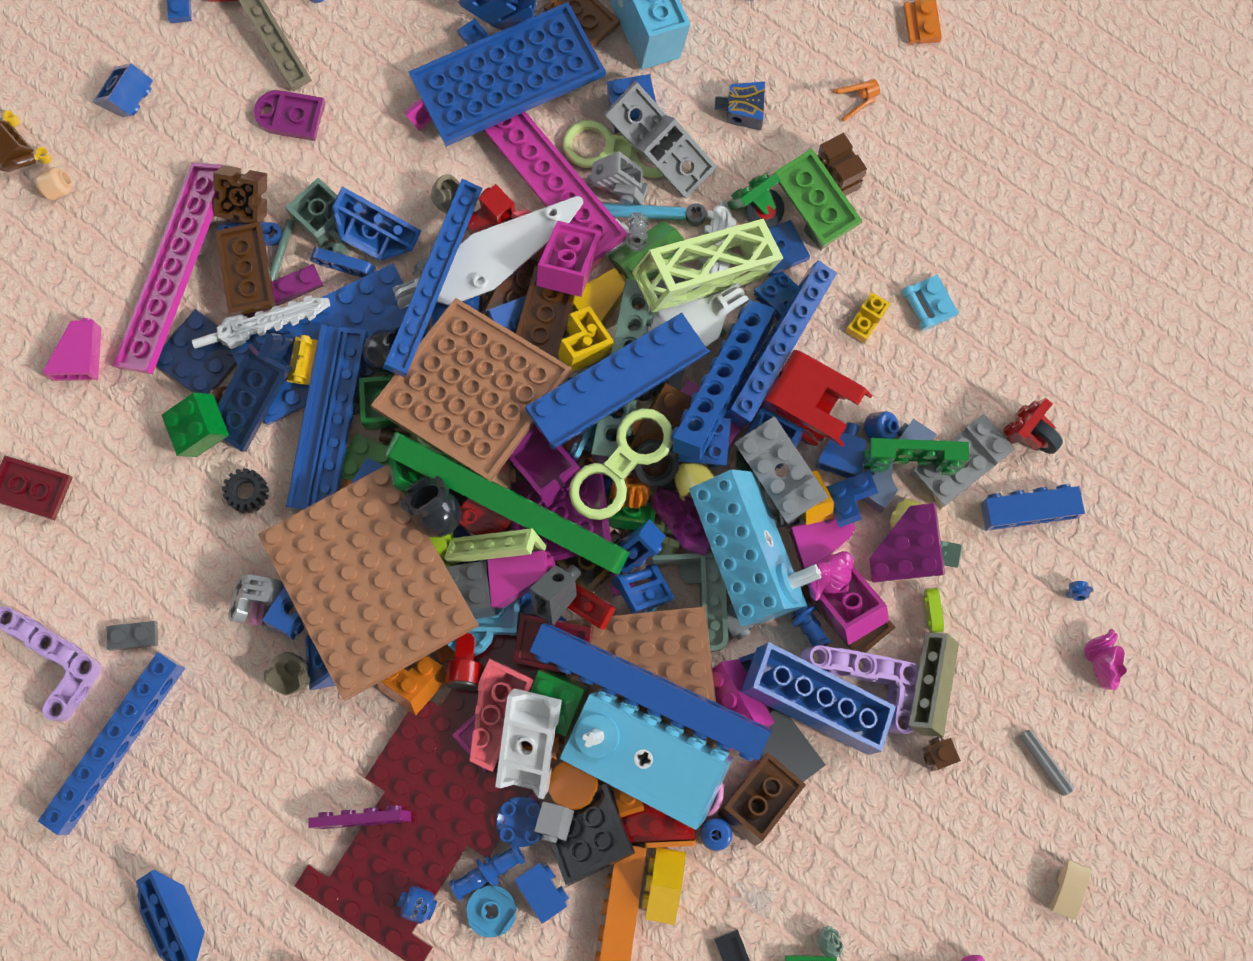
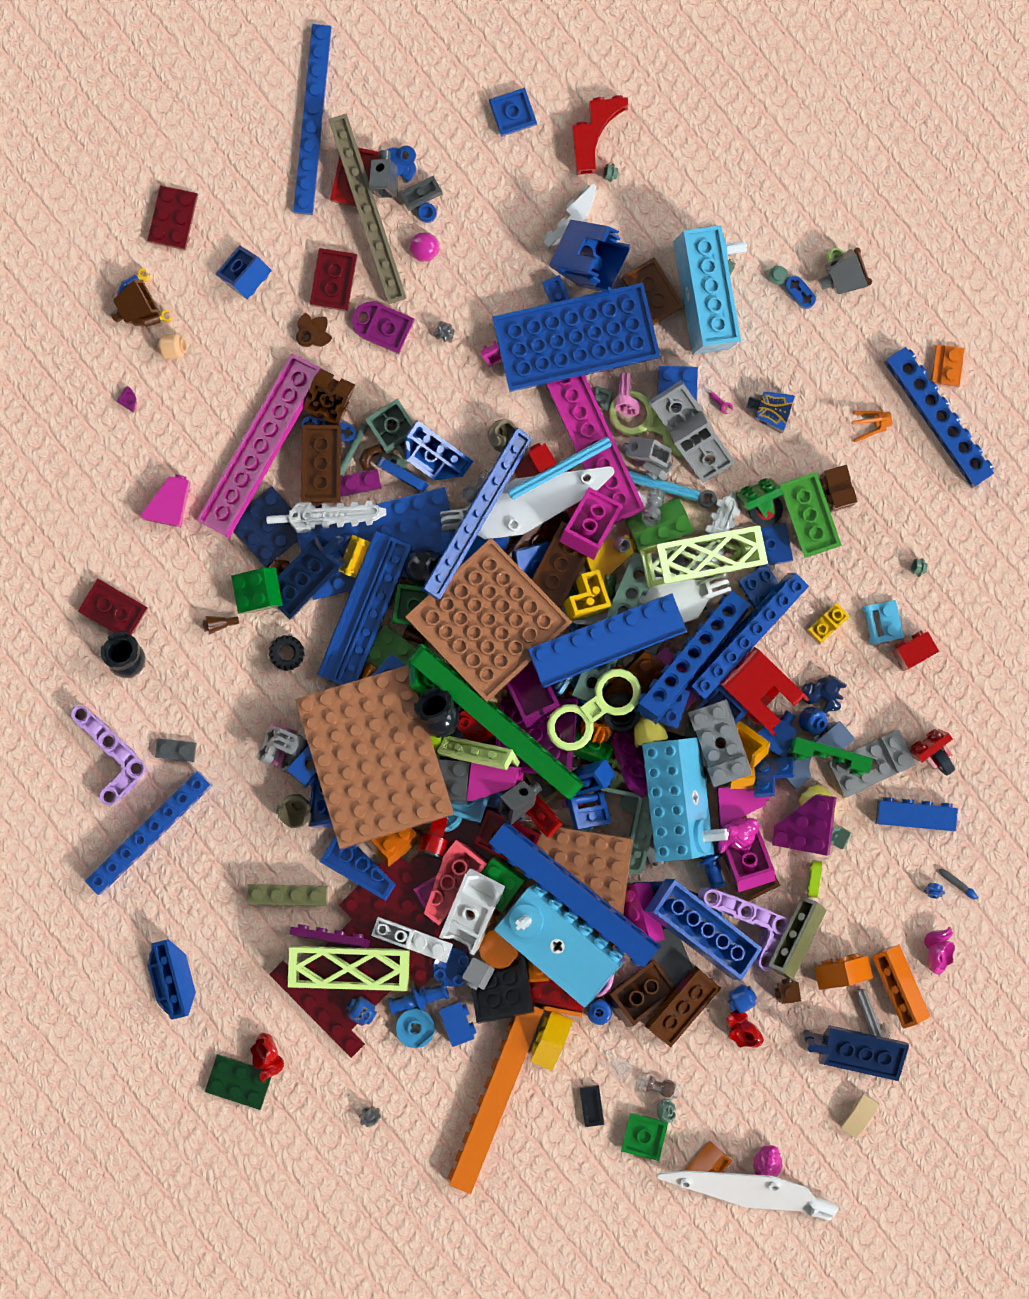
camera: 10 degrees right, 10 degrees up
(13, 253) = (128, 399): none -> magenta tile
(35, 54) = (172, 217): none -> dark red plate
(45, 534) = (123, 655): none -> black tile
(155, 476) = (214, 624): none -> reddish brown cone
(213, 133) = (315, 329): none -> reddish brown plate
(225, 77) = (333, 279): none -> dark red plate
(298, 779) = (287, 895): none -> olive brick
(299, 252) = (367, 455): none -> reddish brown arm
(320, 23) = (424, 246): none -> dark pink hair
(324, 864) = (368, 983): none -> yellowish green piece
(360, 103) = (444, 331): none -> flat silver plant
(377, 724) = (358, 868): none -> blue wing
(462, 798) = (412, 939): none -> white slope
(518, 210) = (559, 468): none -> medium azure axle
(554, 134) = (603, 397): none -> sand green tile
(577, 127) = (623, 402): none -> bright pink piece
(607, 320) = (610, 584): none -> clear green pin
(610, 273) = (617, 544): none -> light grey hinge
(694, 111) = (721, 403): none -> dark pink hand
(817, 803) = (682, 1006): none -> reddish brown plate
(822, 464) = (754, 744): none -> light orange panel
(823, 912) = (666, 1088): none -> clear piece
(887, 776) = (742, 998): none -> blue head
(889, 389) = (825, 688): none -> dark blue animal
(899, 817) = (743, 1031): none -> red hair
(931, 83) = (939, 428): none -> blue brick
(953, 233) = (919, 567): none -> sand green plate
(975, 322) = (915, 651): none -> red brick
(1003, 712) = (843, 972): none -> orange brick
(1047, 808) = (858, 1051): none -> dark blue hinge
(1075, 715) = (901, 986): none -> orange brick
(1104, 577) = (959, 884): none -> dark grey piece

